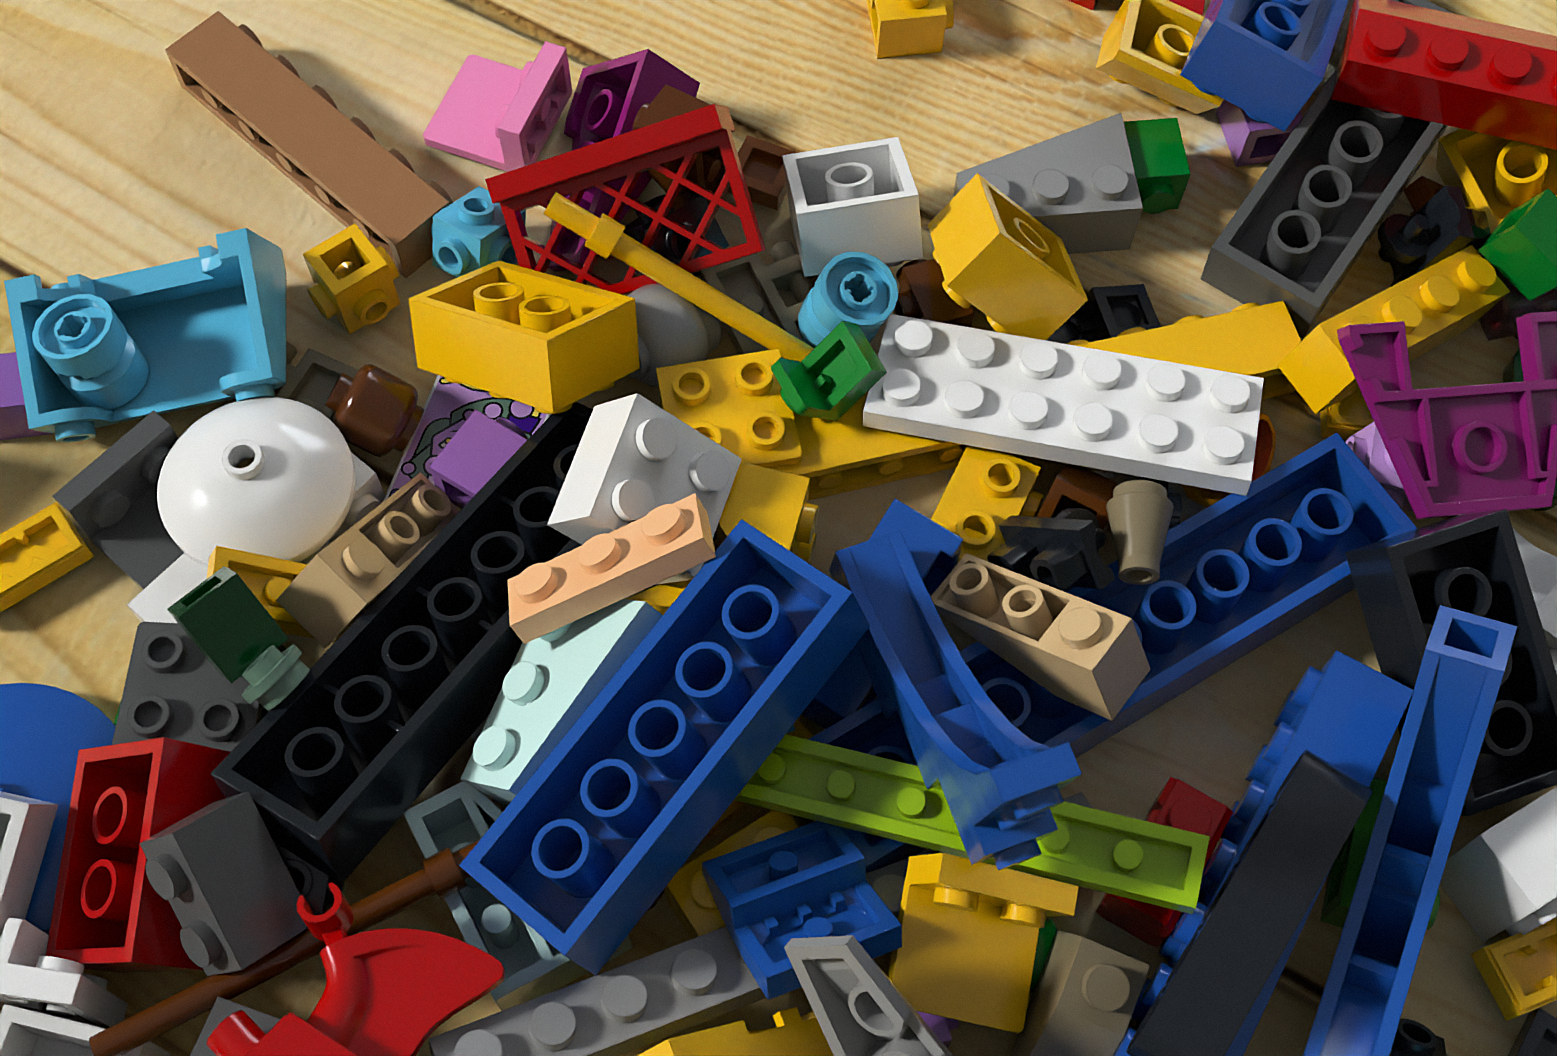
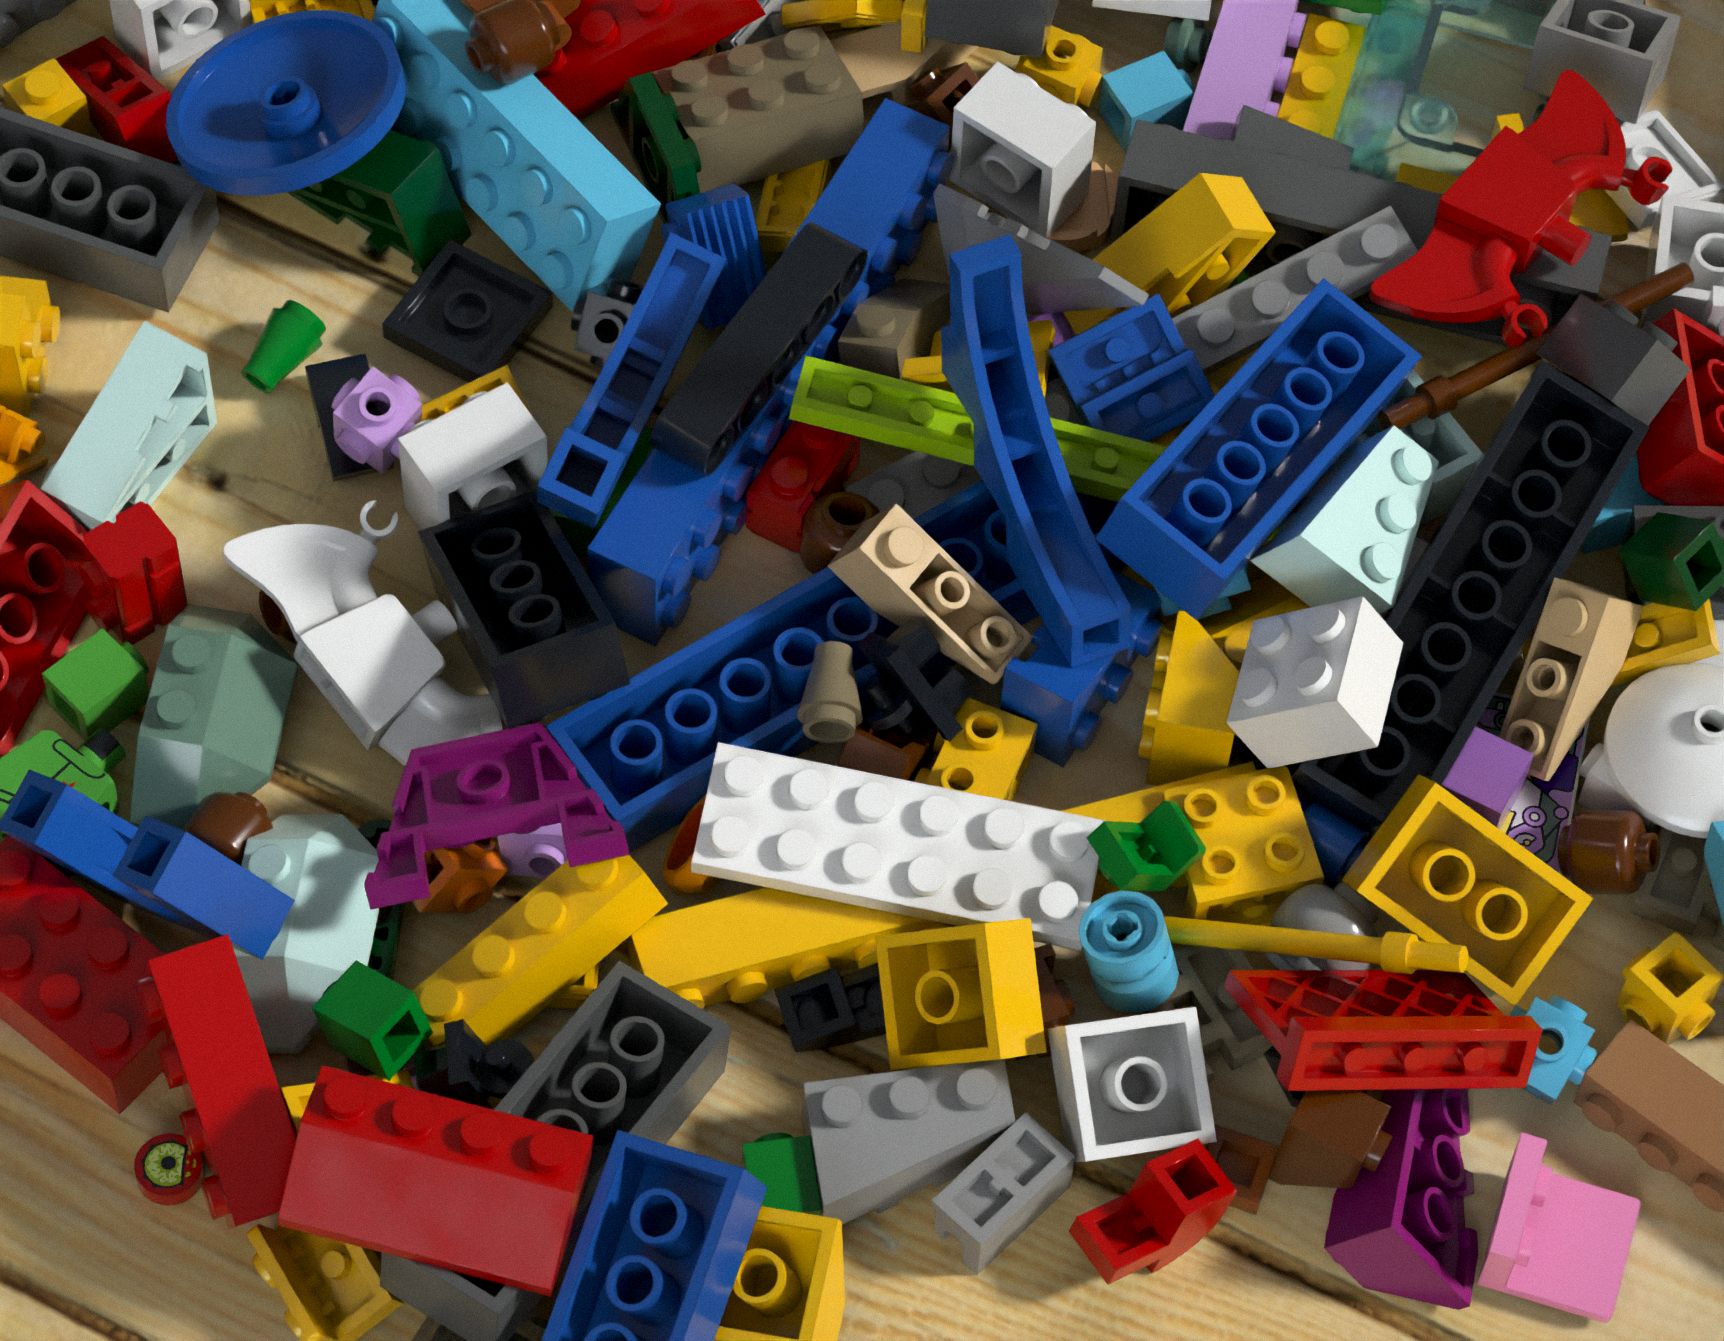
camera: 175 degrees right, 5 degrees down
(274, 676) = (1619, 511): sand green plate -> none
(609, 568) = (1336, 568): light nougat plate -> none
(853, 114) = (1160, 1217): none -> red brick
(963, 142) = (1003, 1191): none -> light grey hinge
(1128, 751) = (830, 525): none -> reddish brown head

